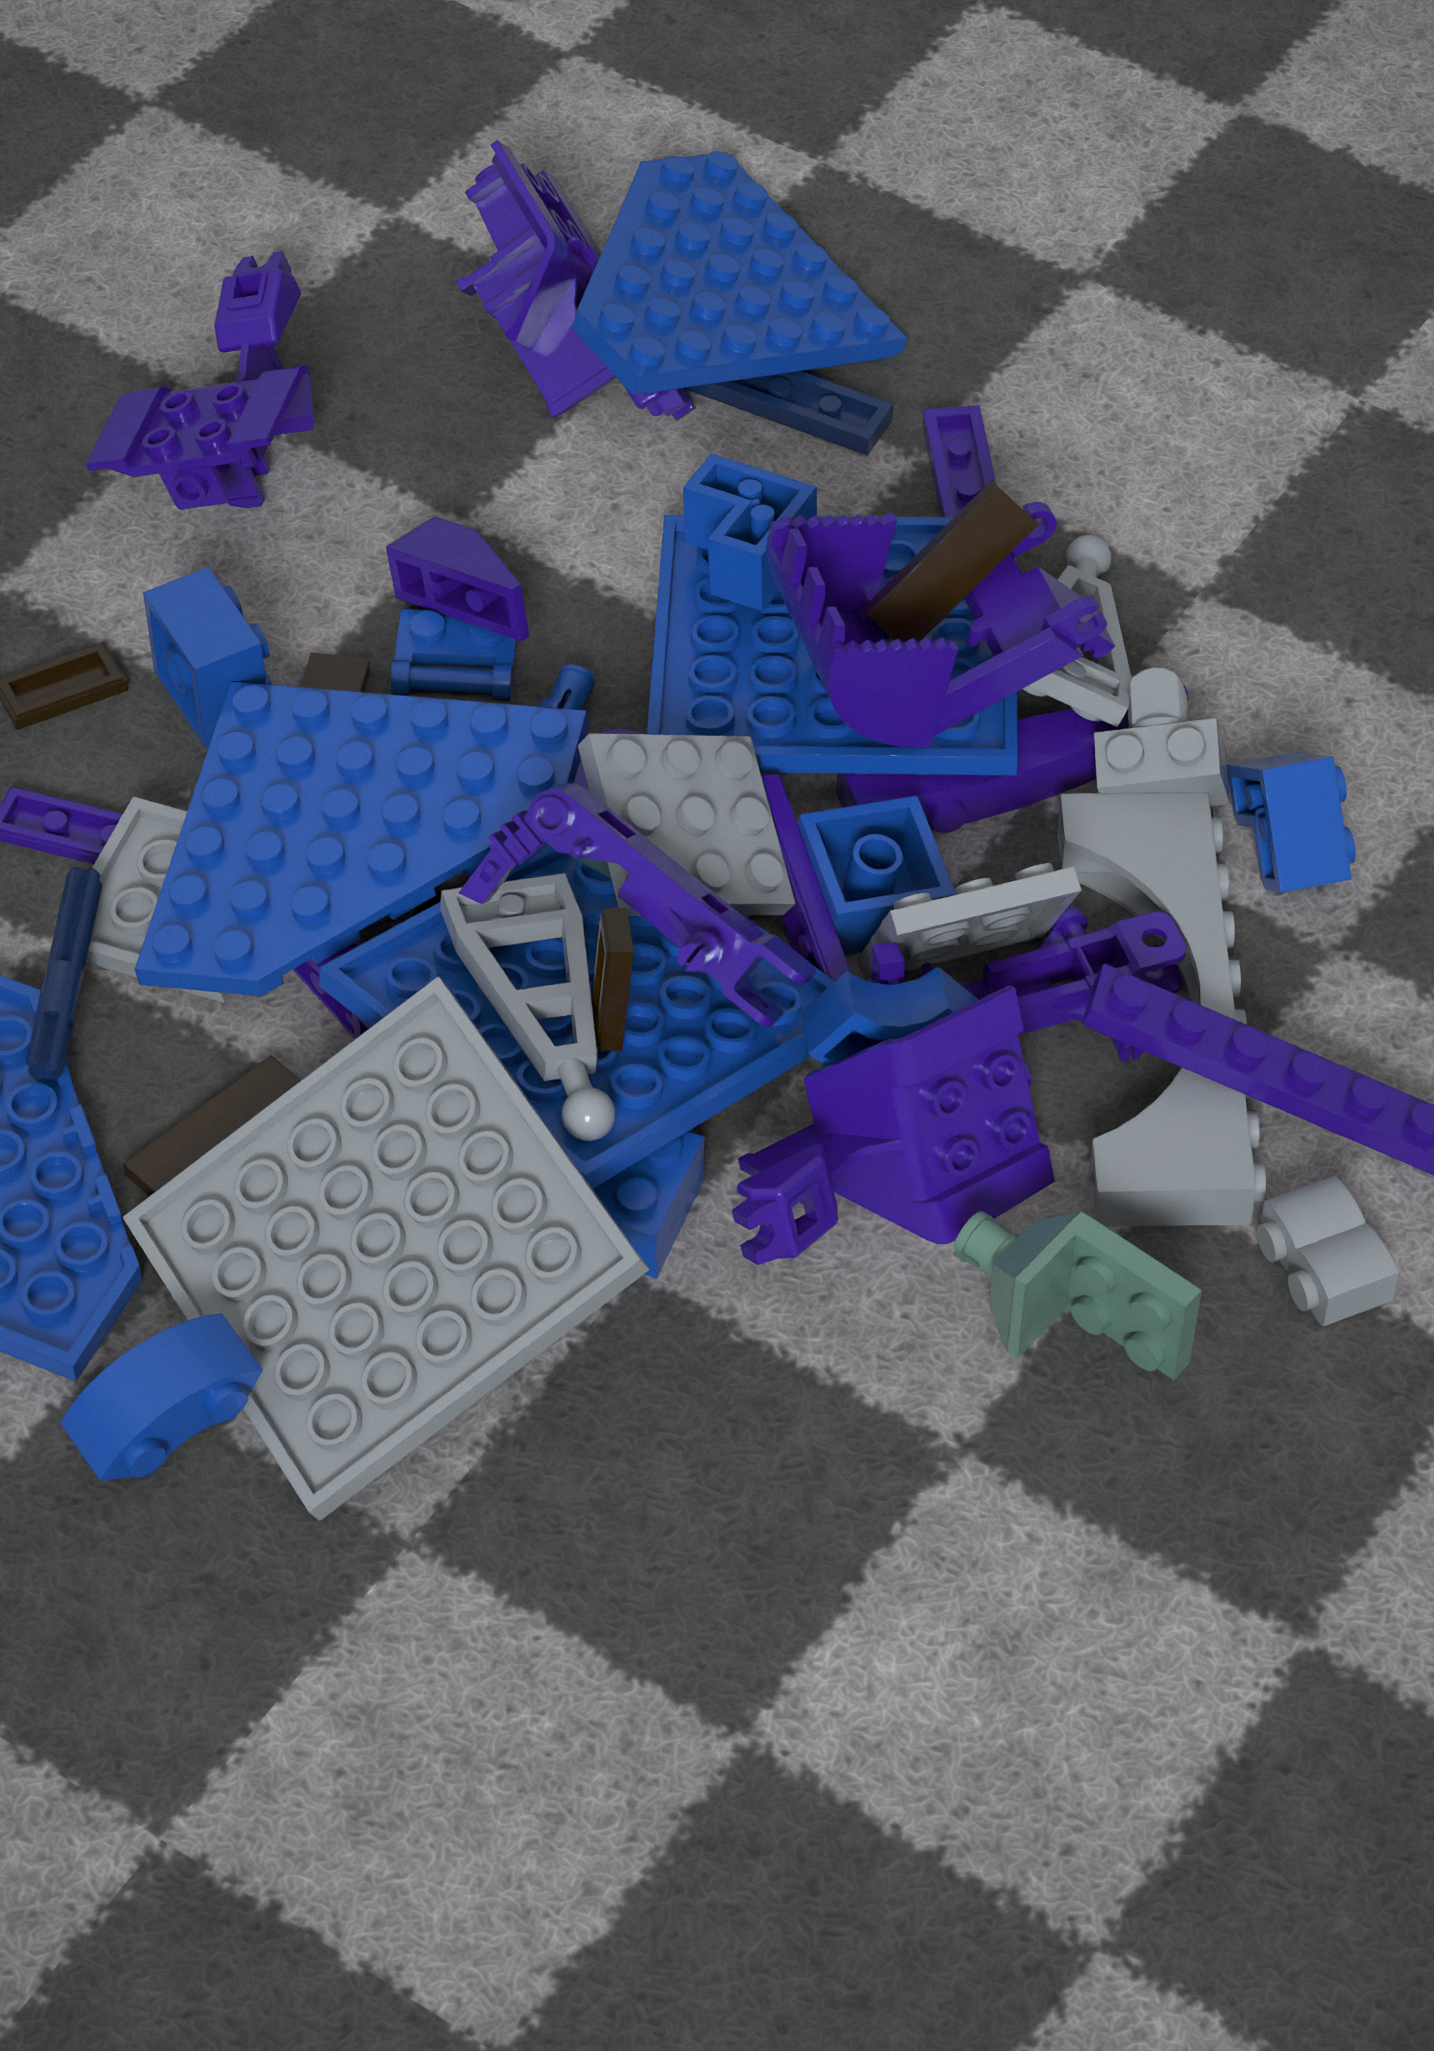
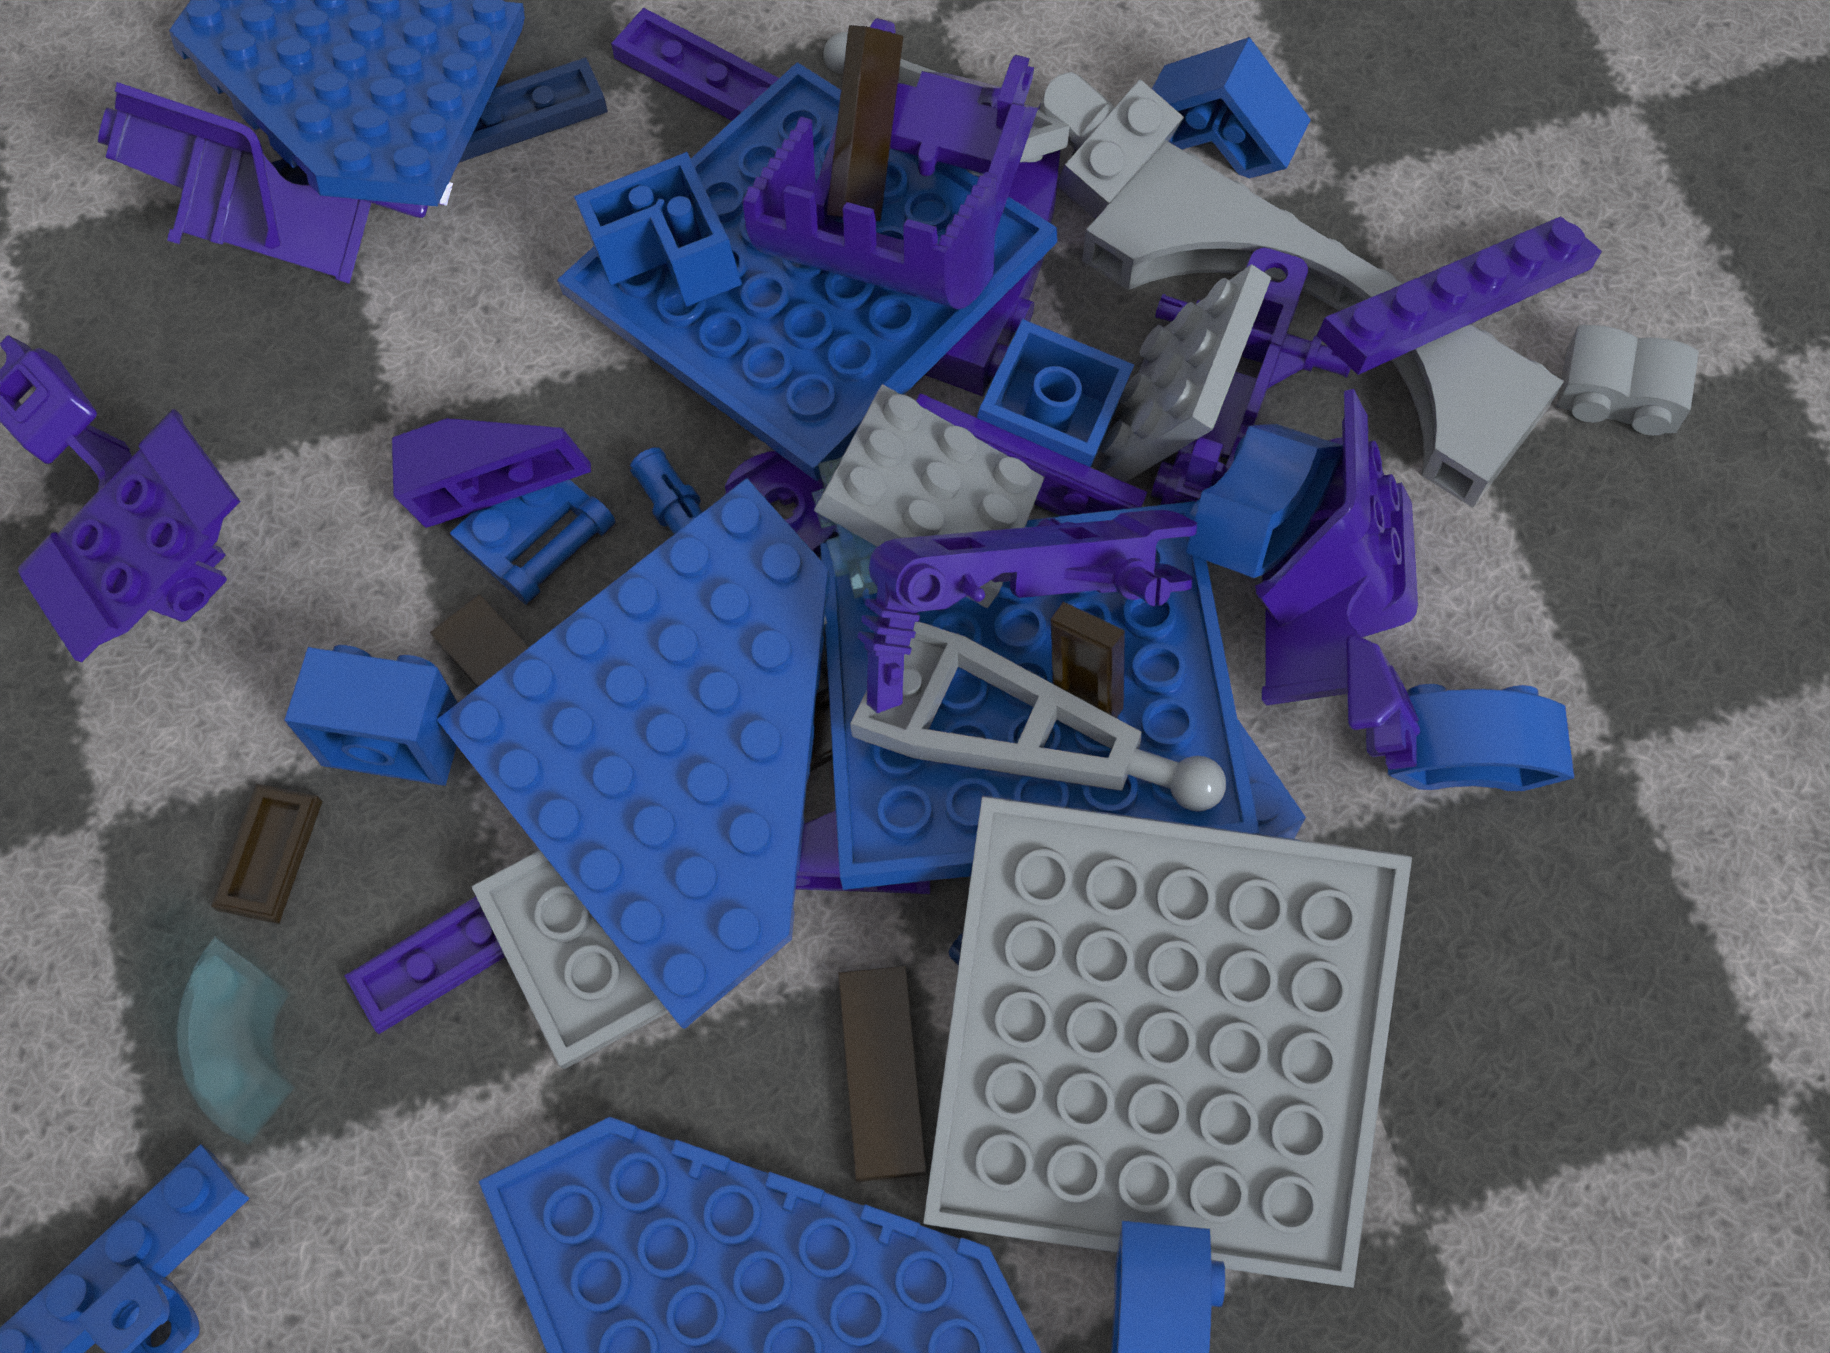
camera: 50 degrees left, 15 degrees up
(64, 974) = (623, 1086): dark blue axle -> none
(852, 1328) = (1488, 739): none -> blue brick
(1093, 1274) = (1549, 567): sand green plate -> none

